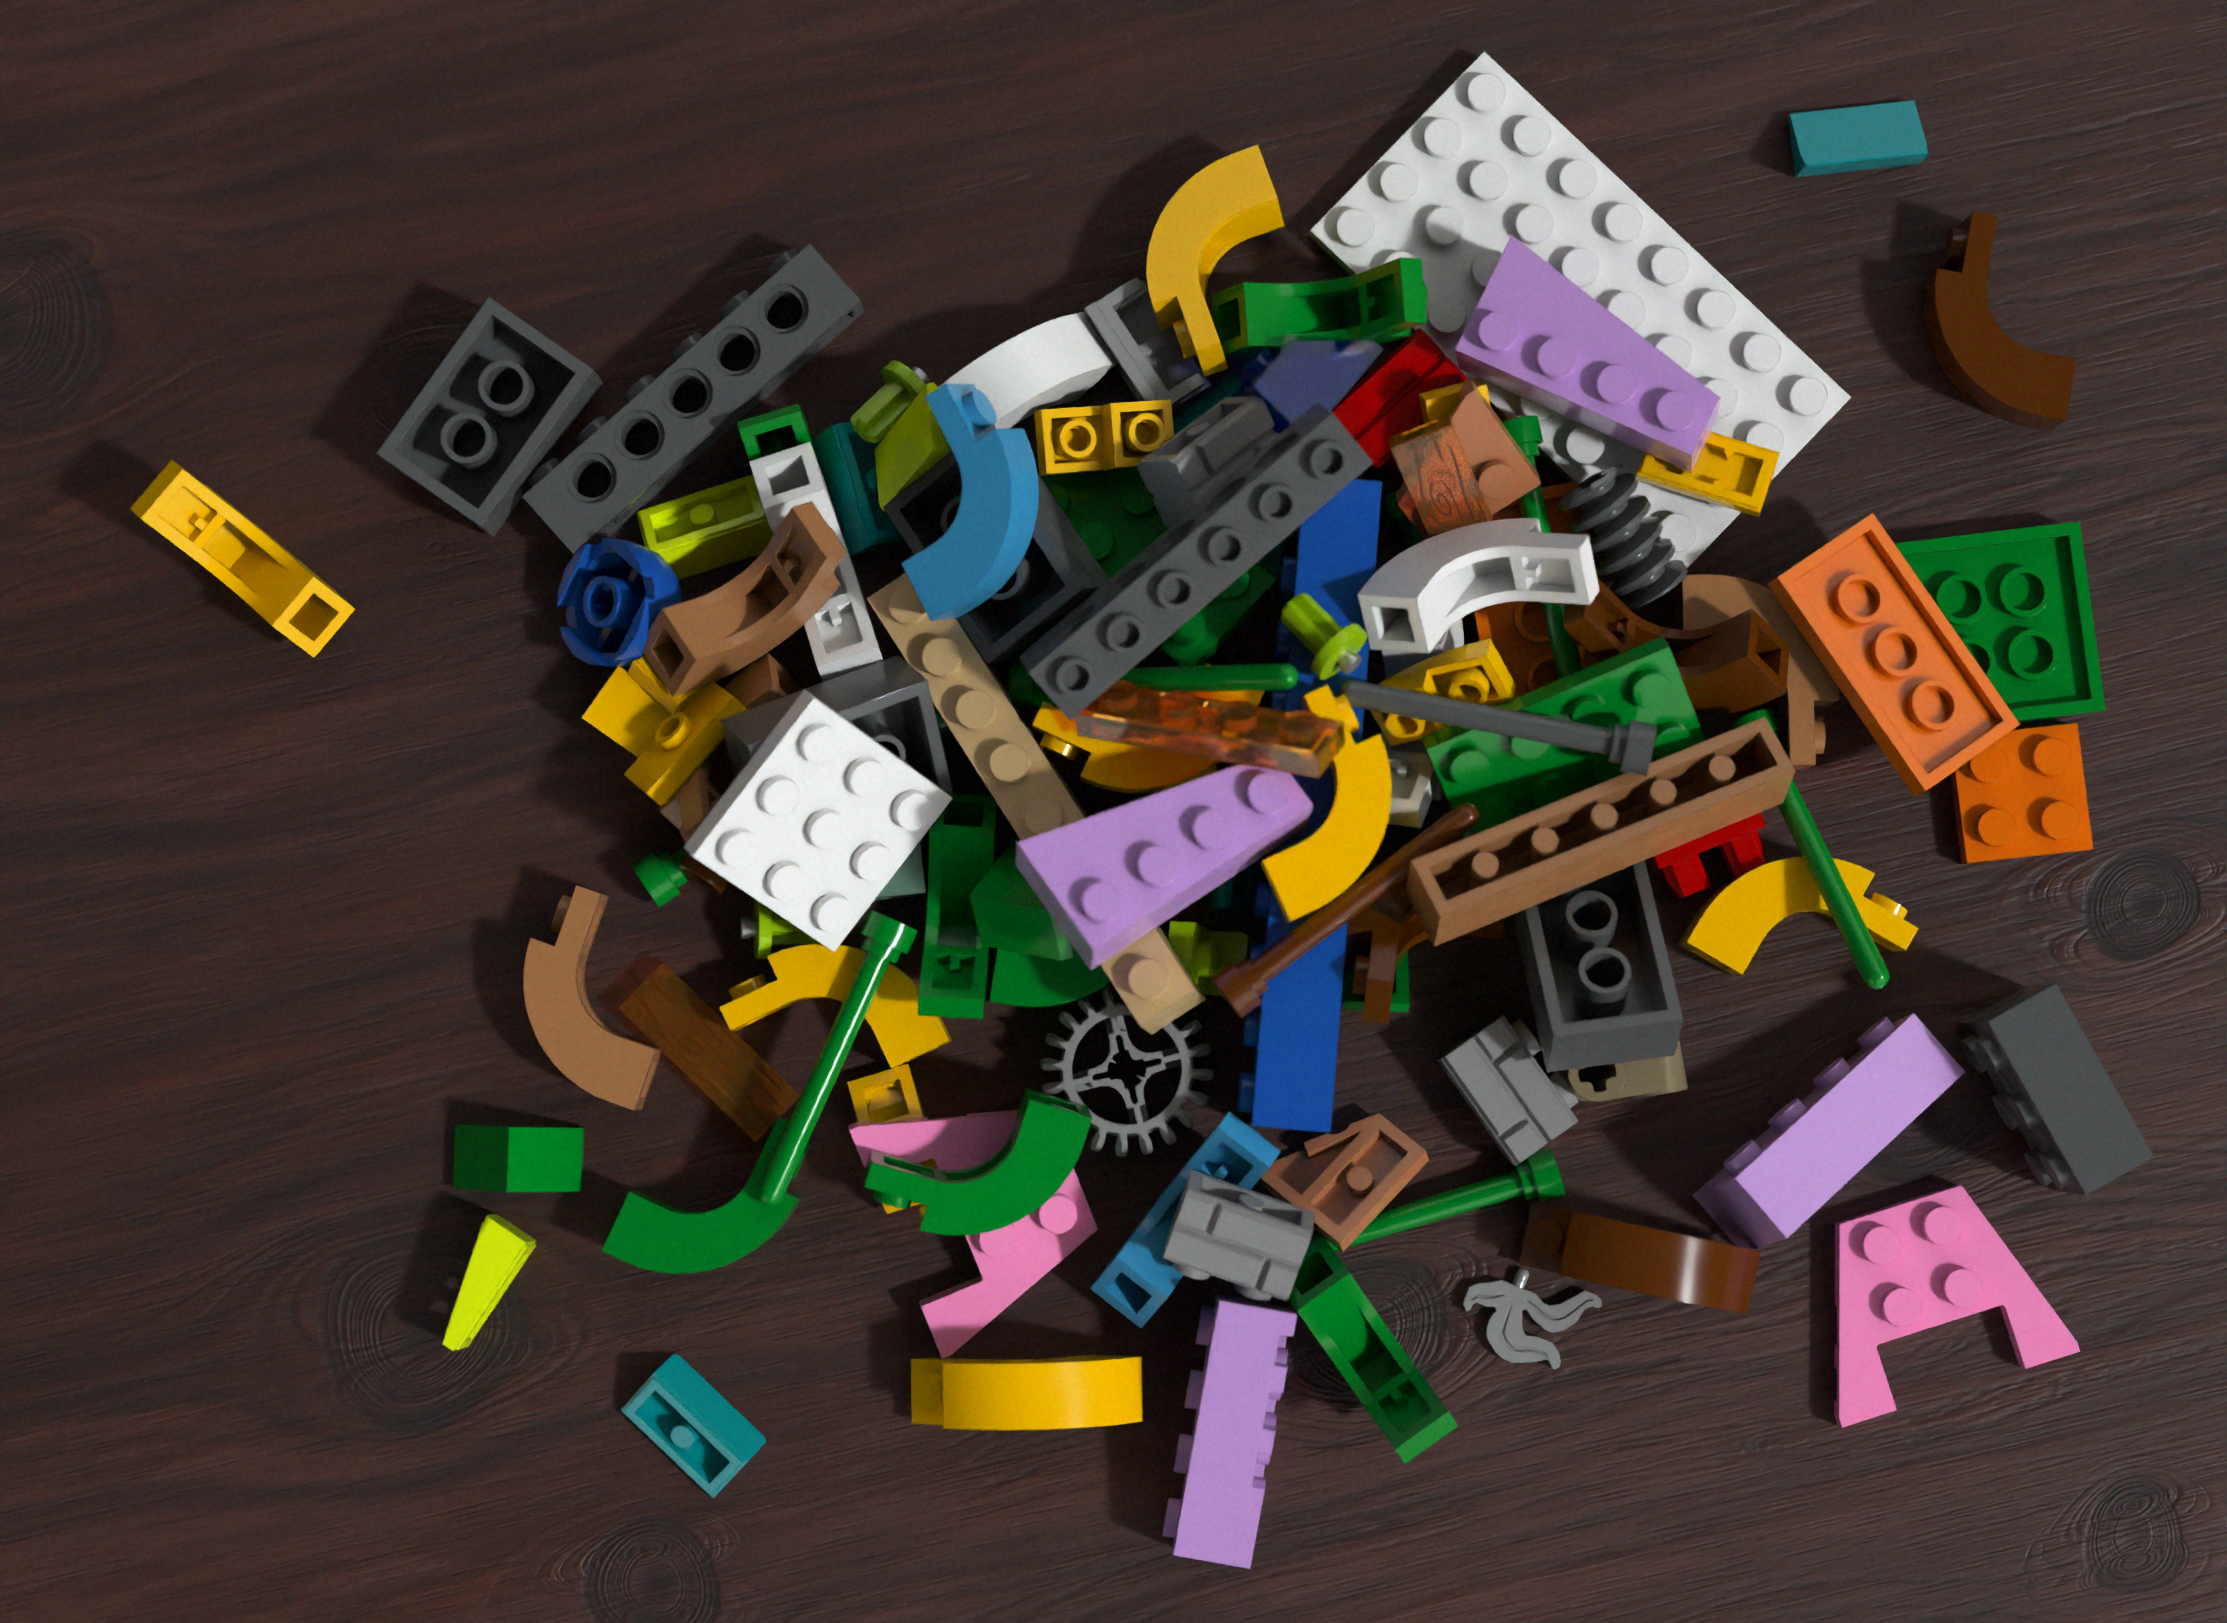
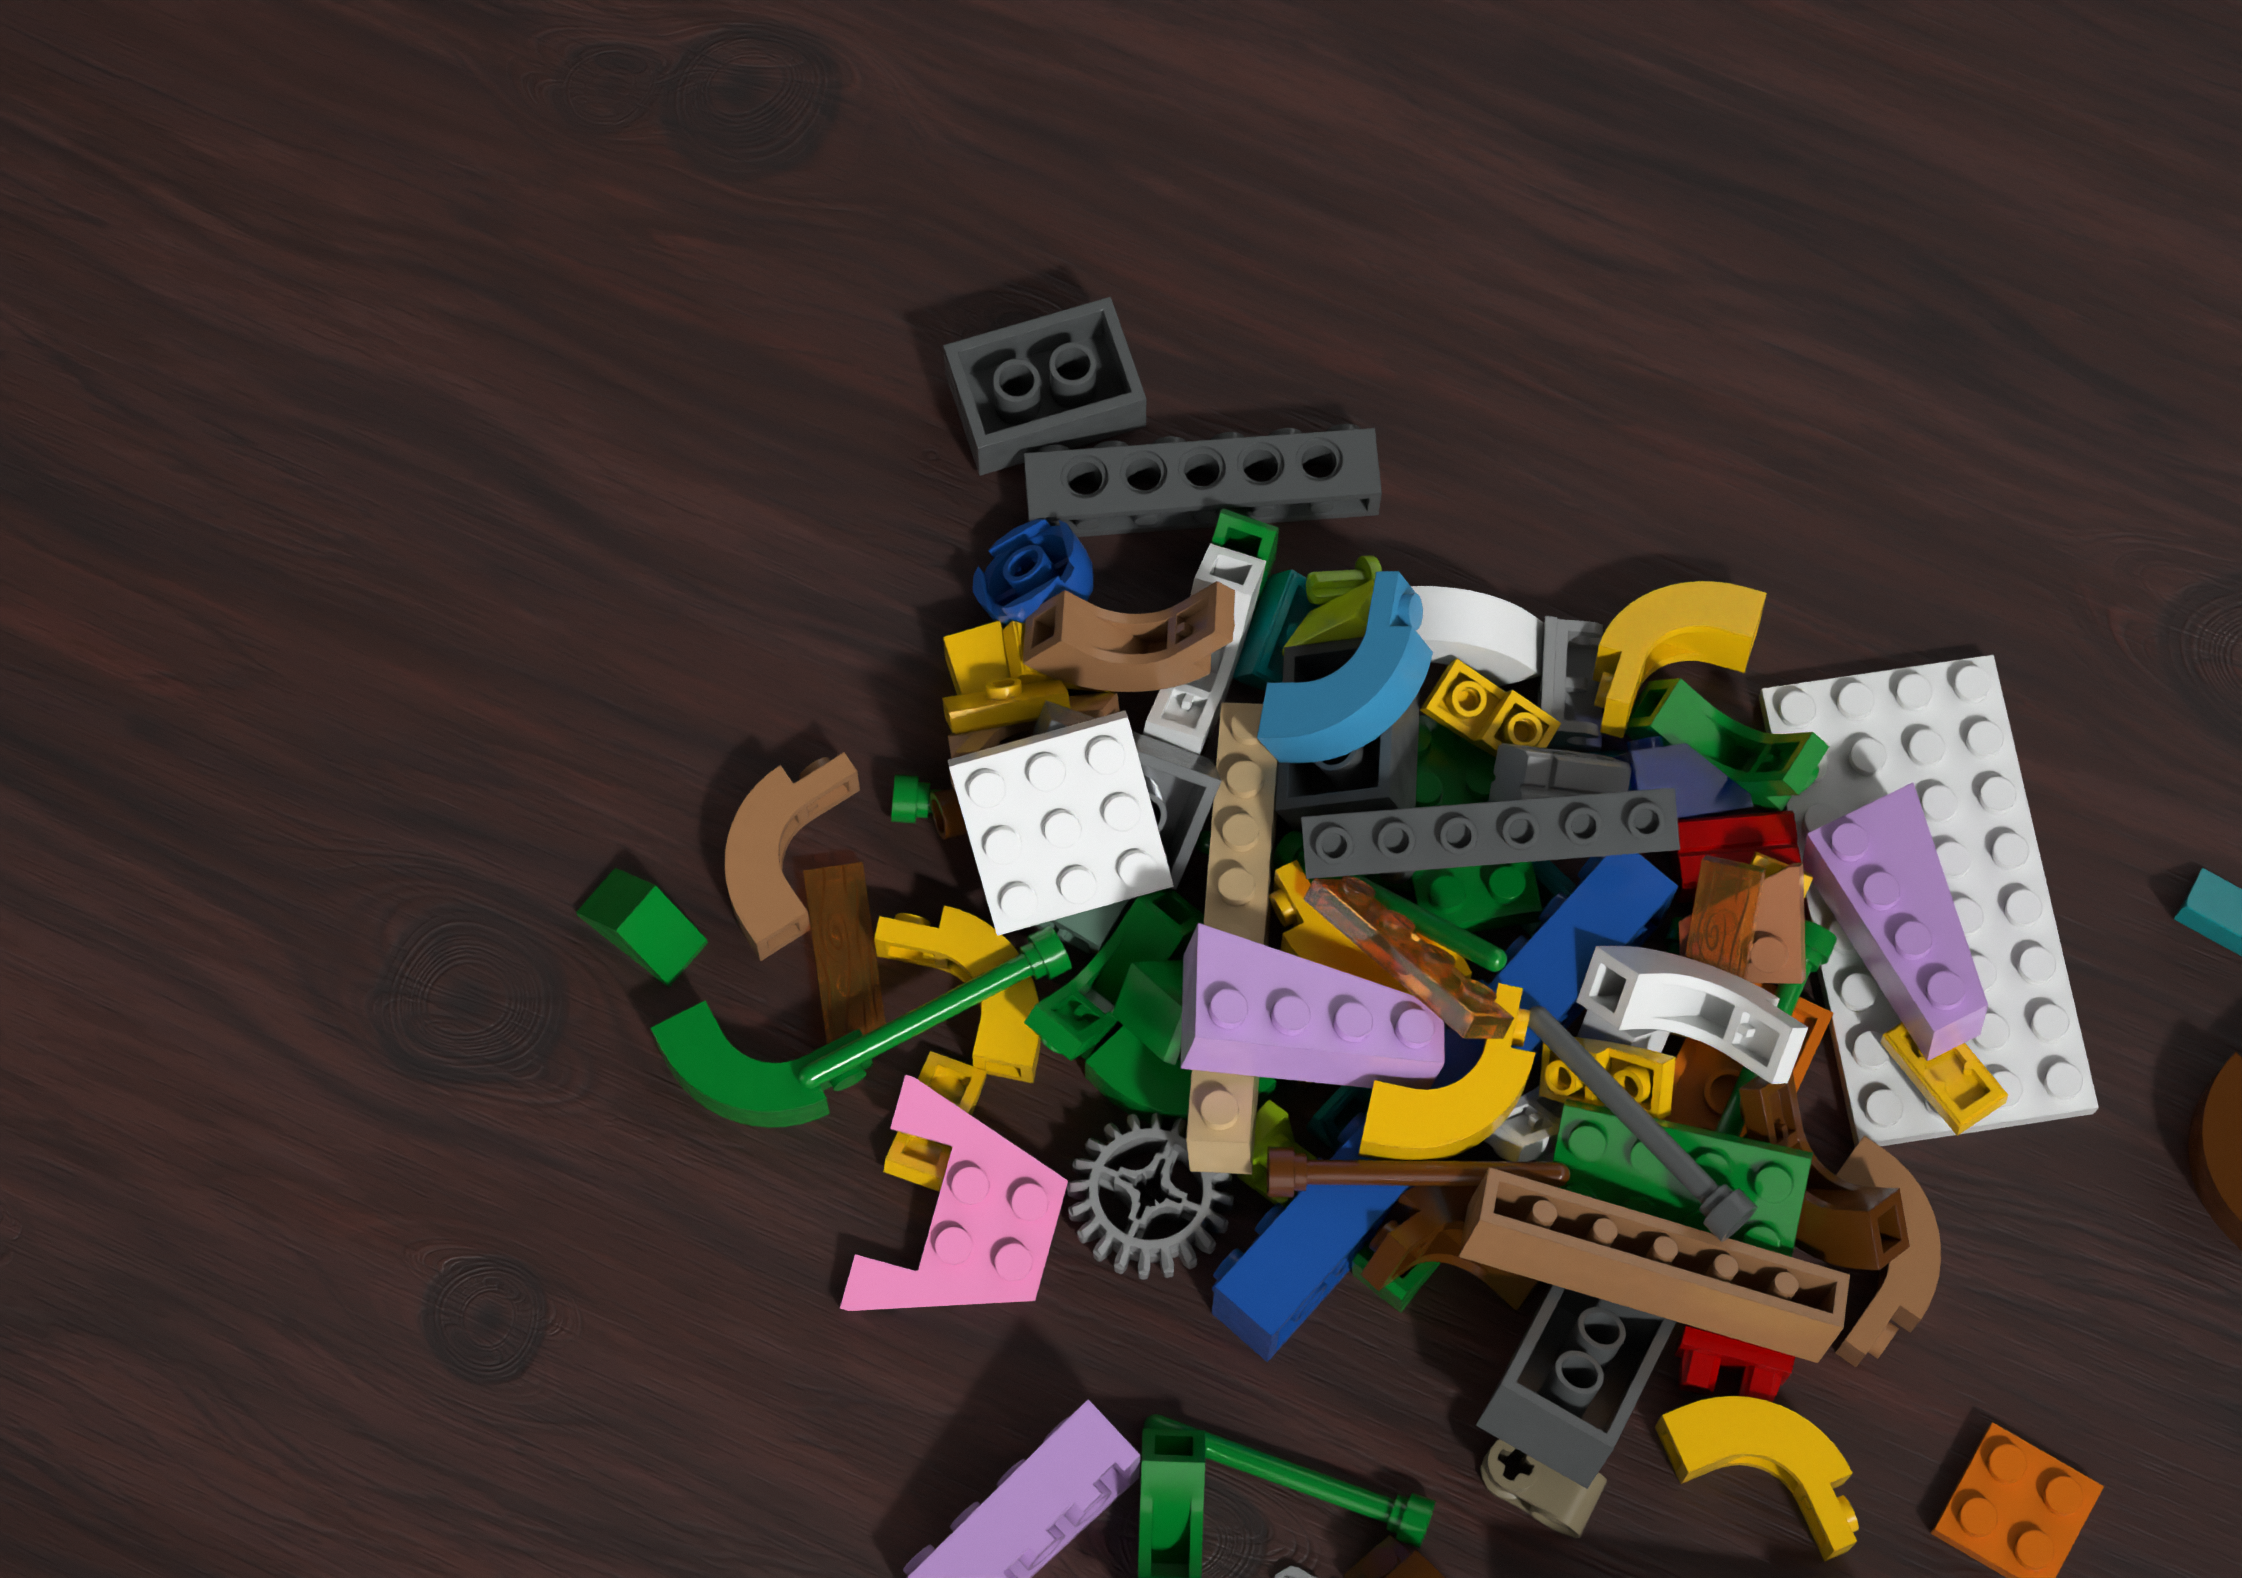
camera: 35 degrees right, 15 degrees down
(243, 558) = (788, 352): yellow arch -> none
(492, 1267) = (551, 991): neon yellow slope -> none
(694, 1424) = (613, 1219): teal slope -> none
(708, 527) = (1137, 578): neon yellow slope -> none
(771, 930) = (964, 894): lime piece -> none
(1002, 1188) = (1000, 1201): green arch -> none
(1027, 1392) = (889, 1376): yellow arch -> none
(1137, 1275) = (1109, 1340): dark azure arch -> none
(1238, 1237) = (1138, 1368): light grey brick -> none
(1330, 643) = (1548, 972): lime piece -> none
(1347, 1176) = (1256, 1402): nougat wing -> none
(1509, 1088) = (1437, 1430): light grey brick -> none
(1625, 536) = (1837, 1071): dark grey piece -> none
(1826, 873) = (1813, 1433): green piece -> none
(1893, 654) = (1989, 1314): orange plate -> none
(2020, 612) = (2089, 1365): green plate -> none

